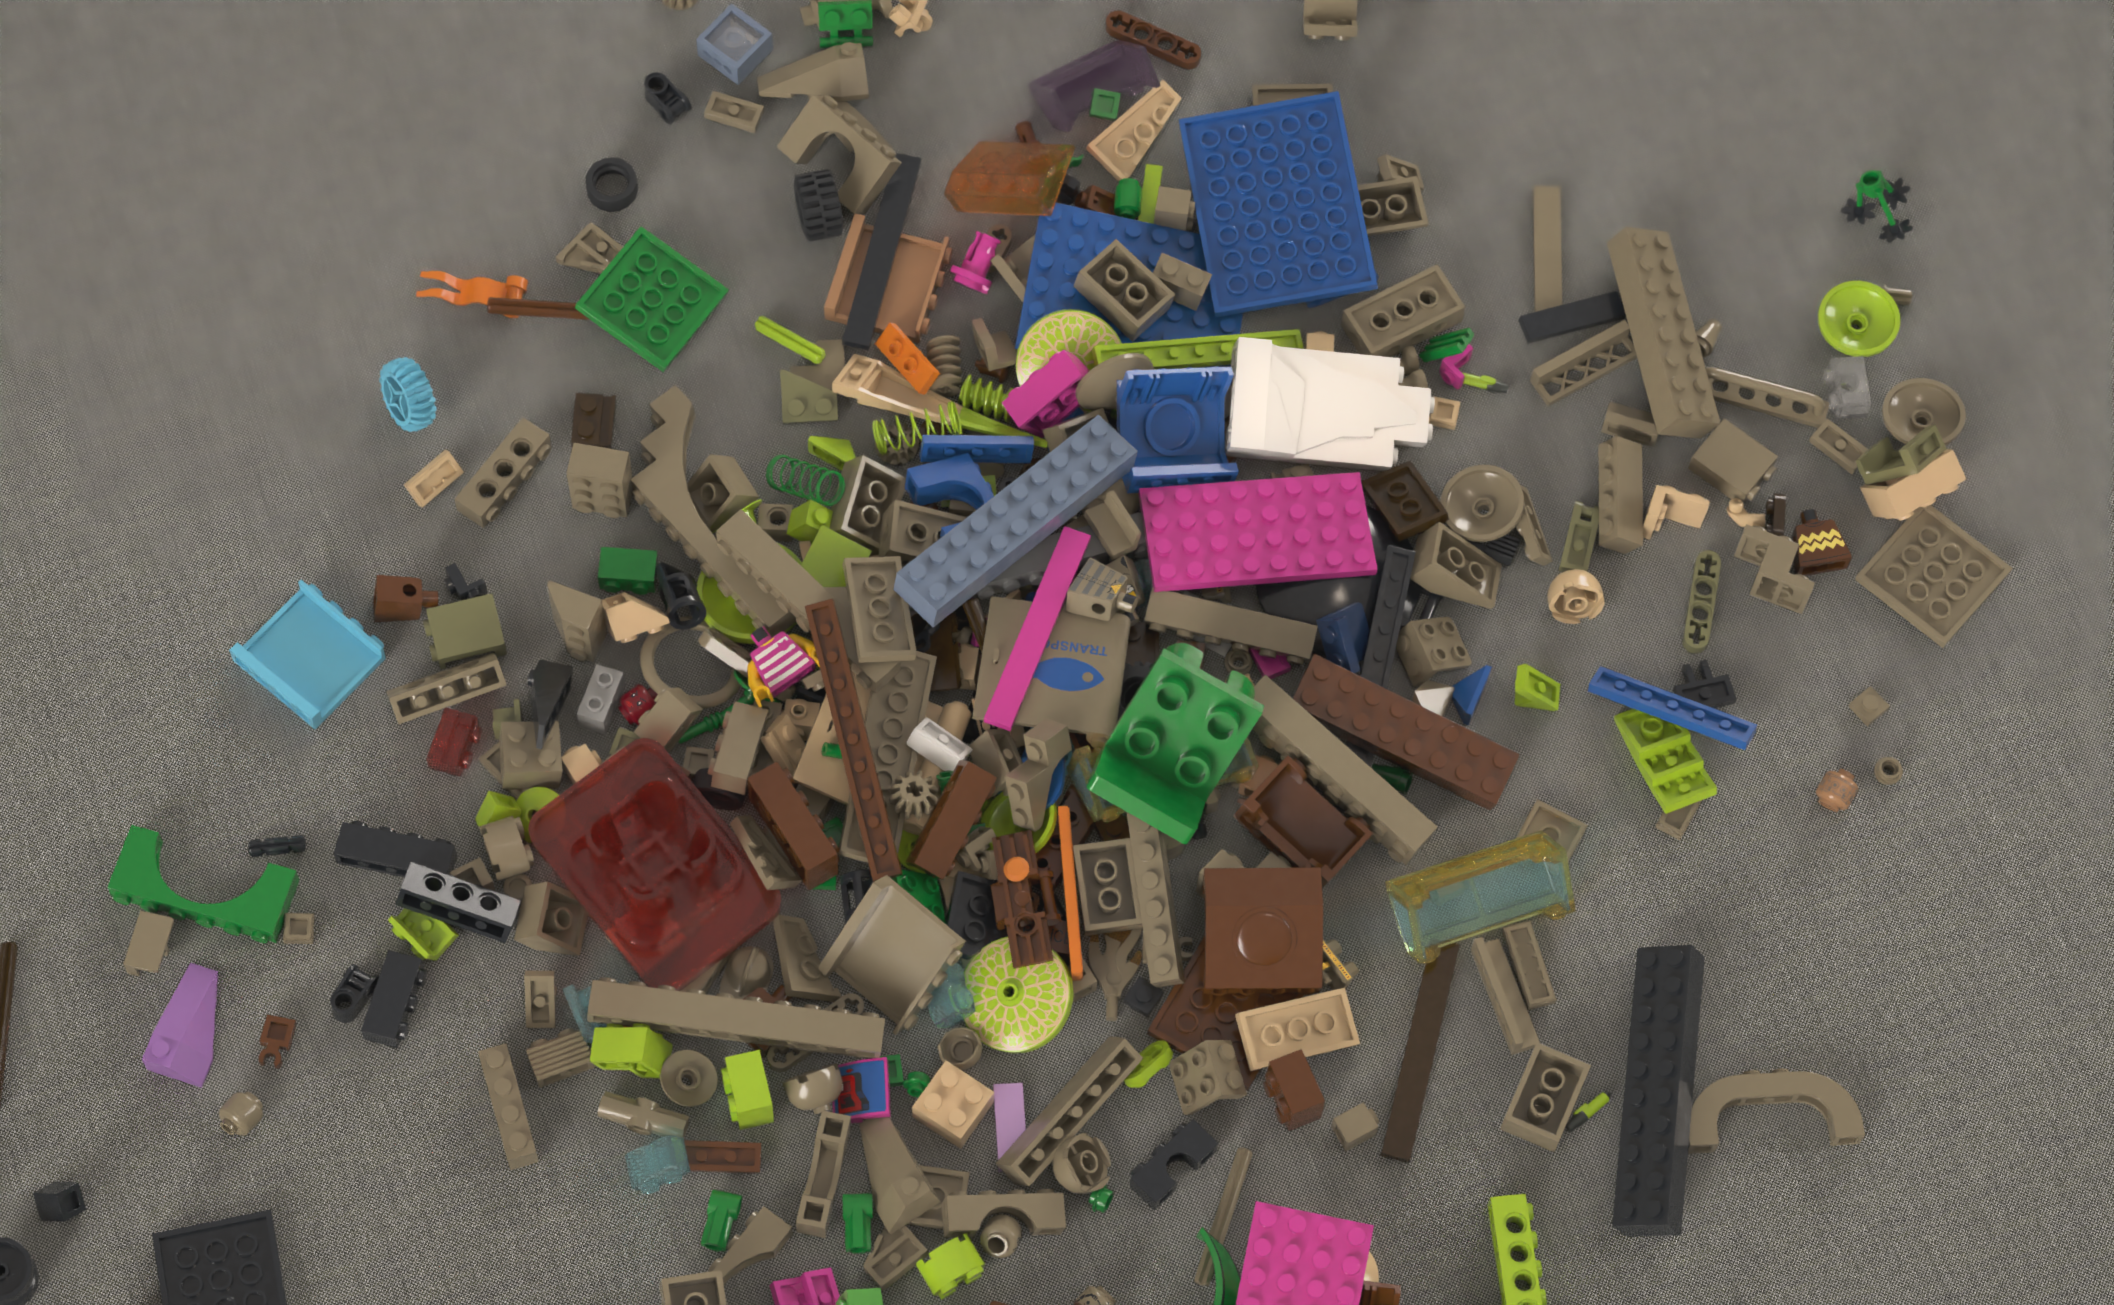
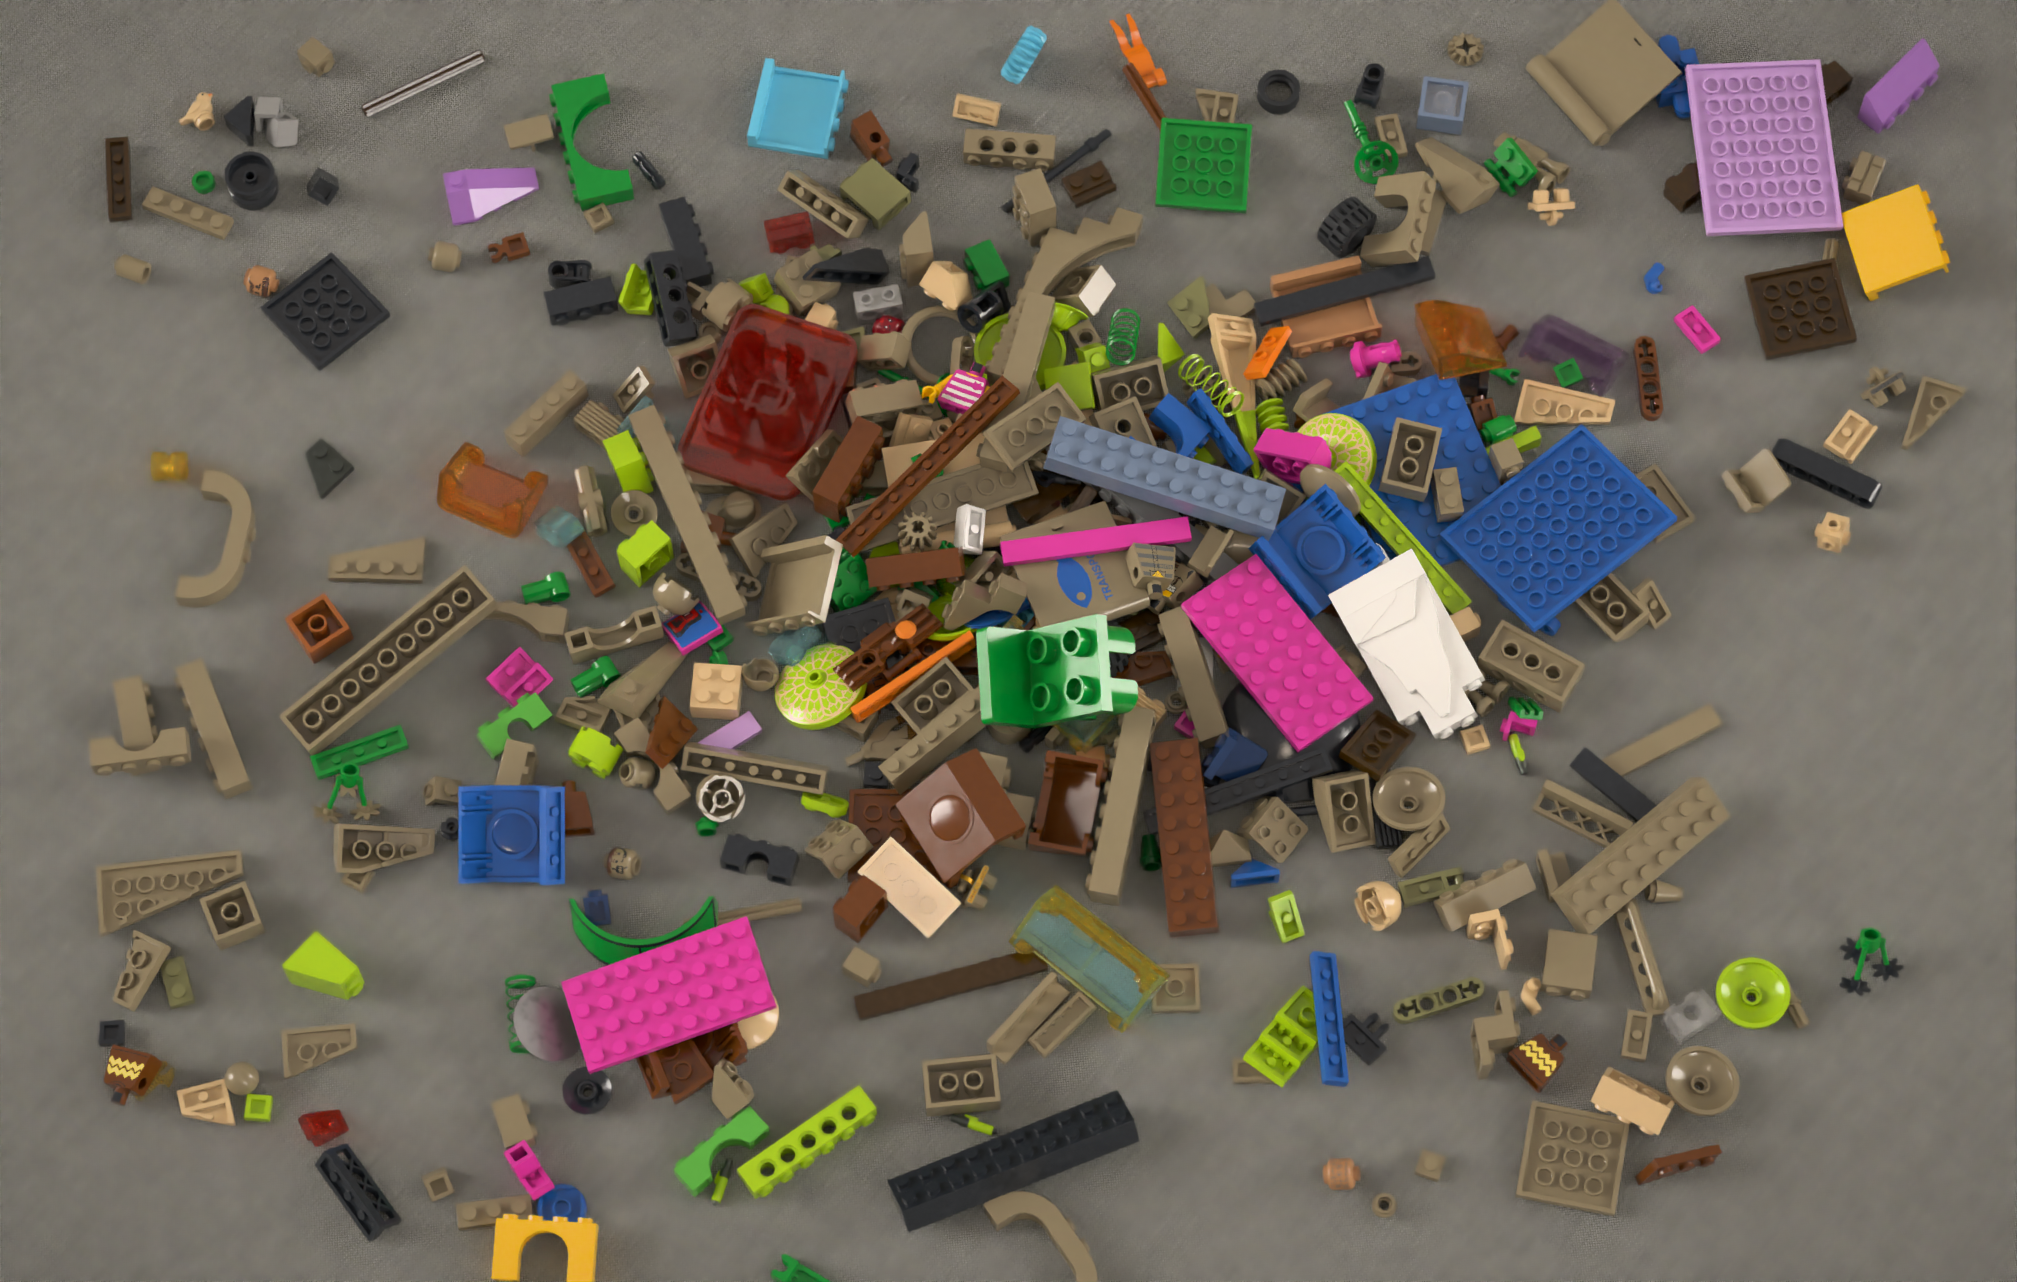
camera: 65 degrees right, 0 degrees up
(550, 395) = (1090, 145): none -> black bar
(568, 1217) = (487, 494): none -> clear orange windscreen
(748, 141) = (1372, 155): none -> green dish
(790, 339) = (1233, 271): lime axle -> none
(980, 1174) = (669, 733): none -> reddish brown wing
(1776, 509) = (1549, 1015): dark brown plate -> none
(1886, 463) = (1645, 1077): olive panel -> none
(1994, 480) = (1678, 1162): none -> reddish brown wing

